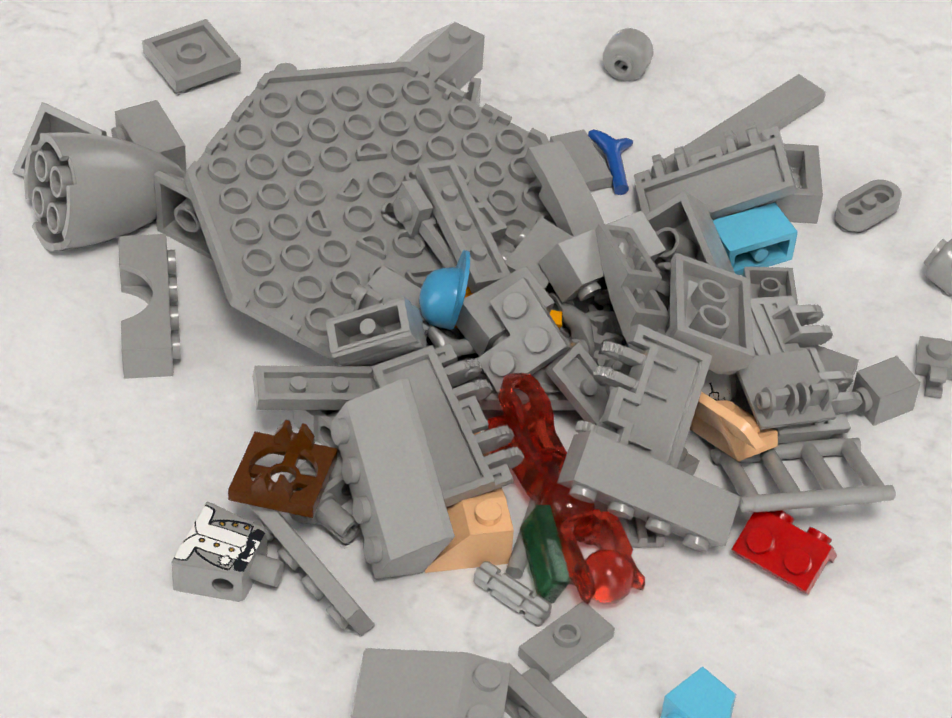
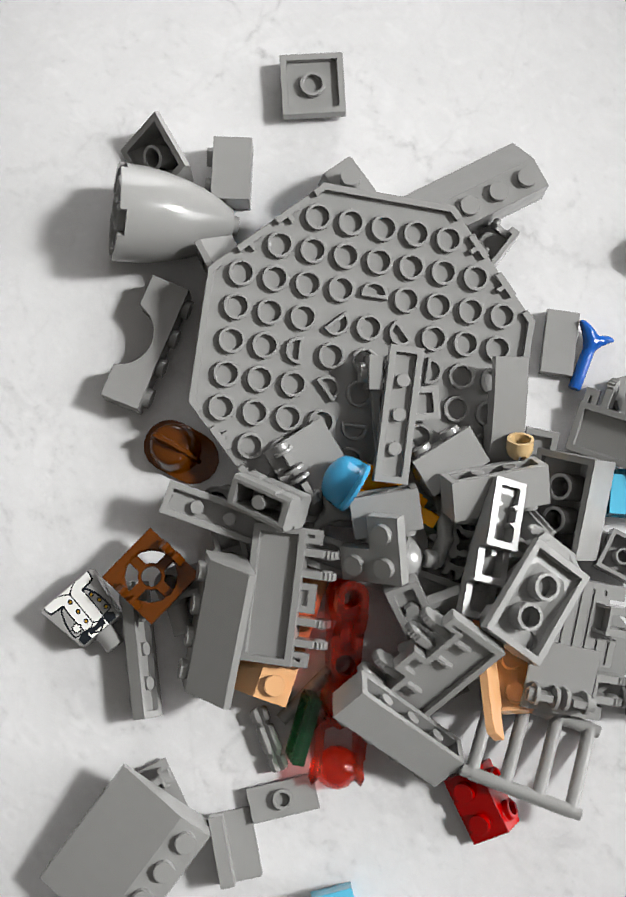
camera: 30 degrees right, 35 degrees up
(226, 383) = (181, 451): none -> reddish brown piece
(601, 215) = (519, 445): none -> tan hinge

